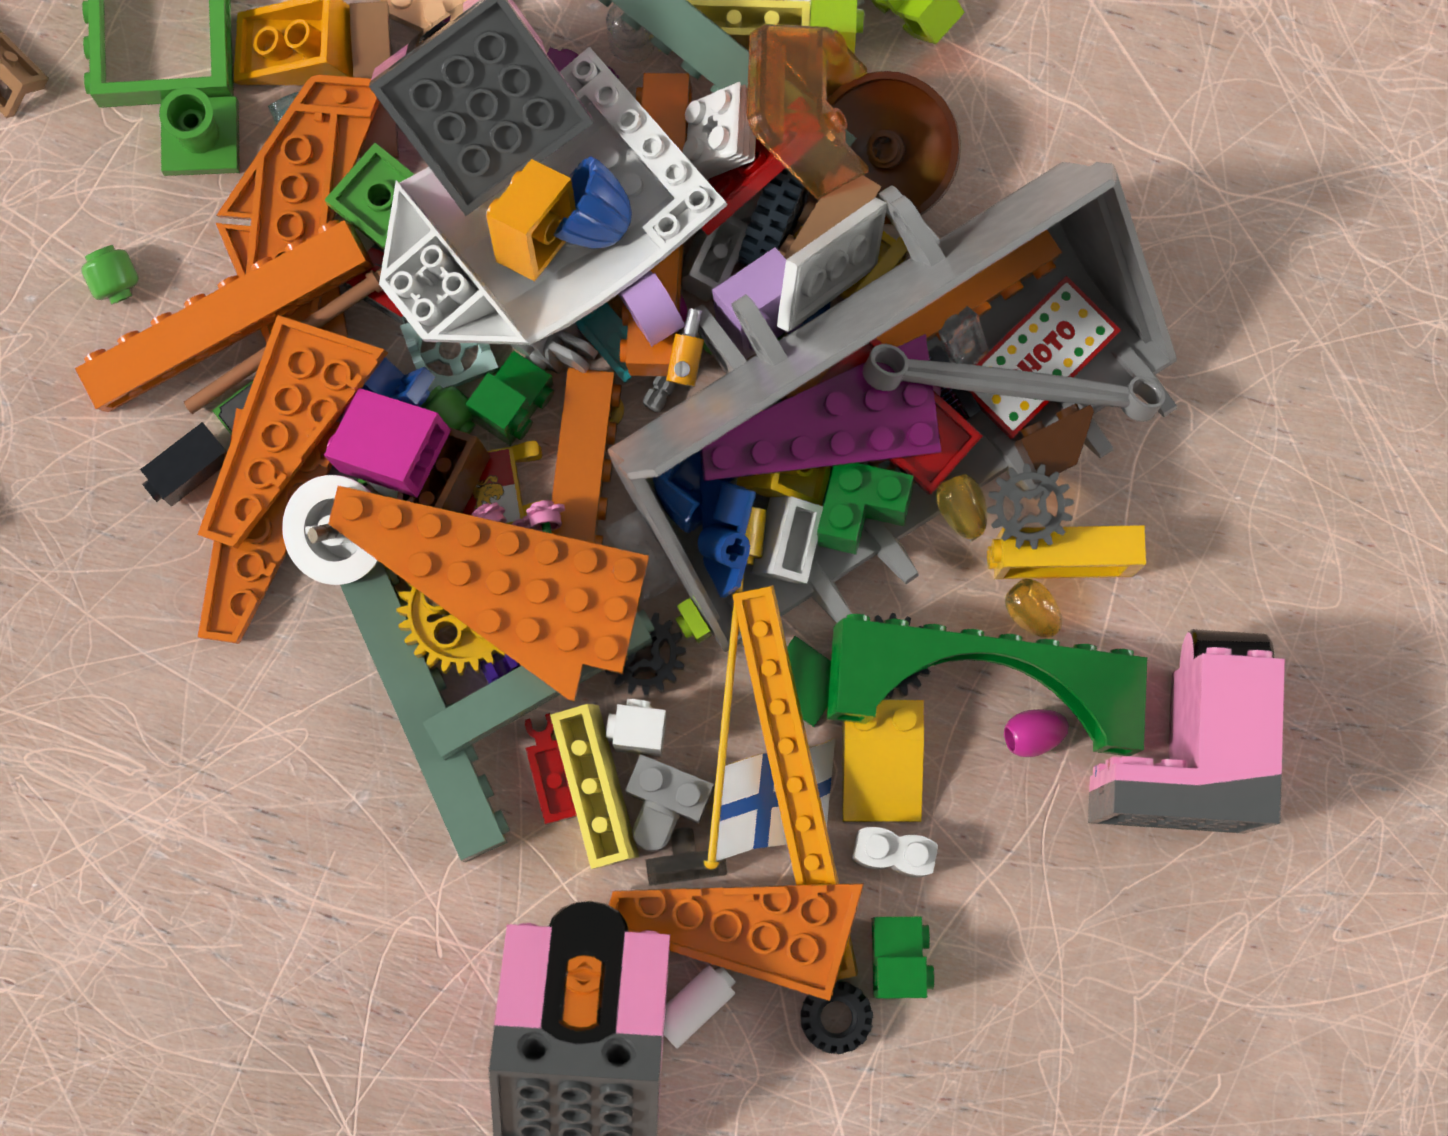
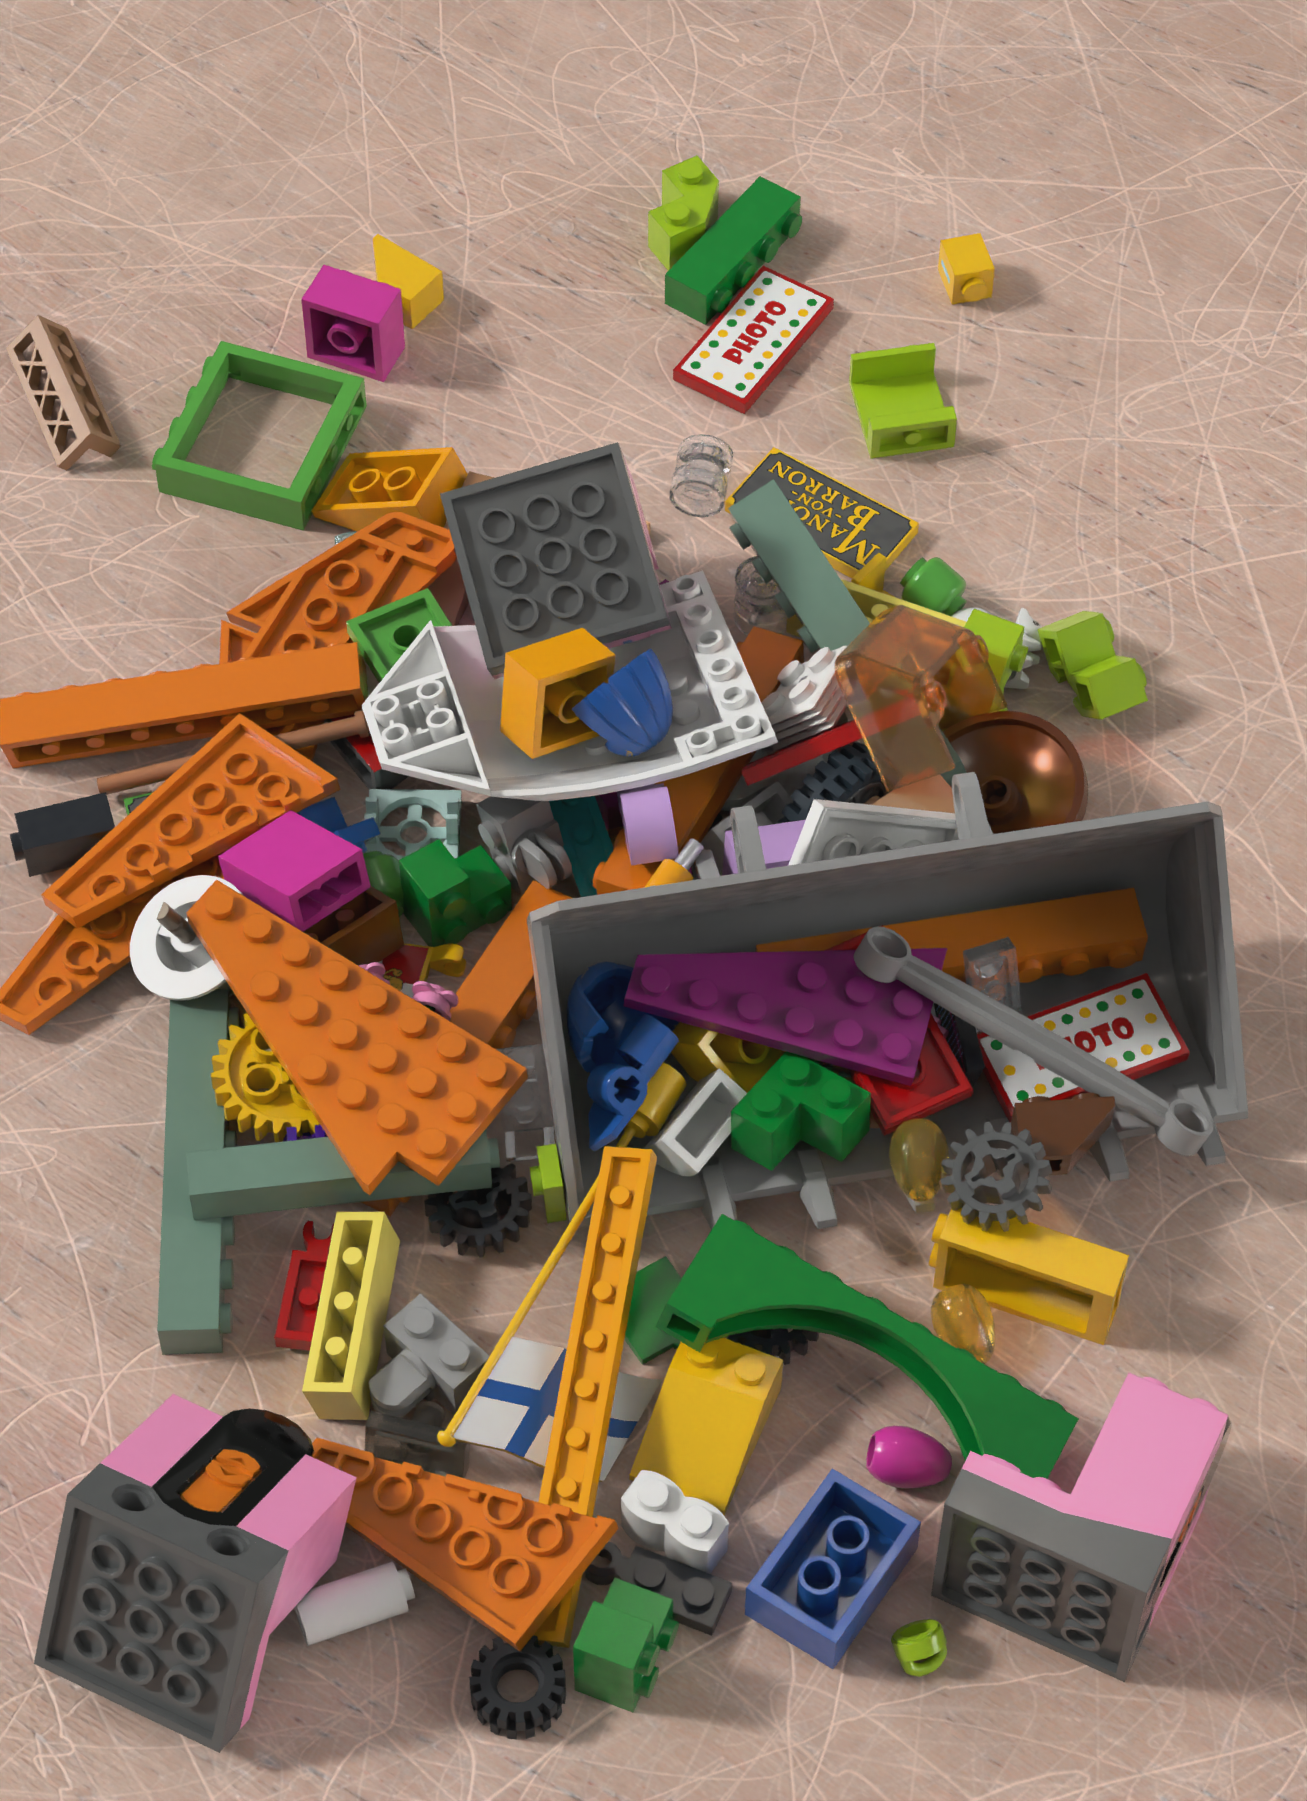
camera: 25 degrees right, 25 degrees down
(109, 274) = (85, 635): bright green head -> none
(199, 133) = (248, 541): bright green plant -> none
(637, 728) = (434, 1263): white brick -> none
(908, 897) = (695, 1594): none -> black plate
(1020, 843) = (832, 1568): none -> blue brick
(1098, 869) = (917, 1642): none -> lime tile

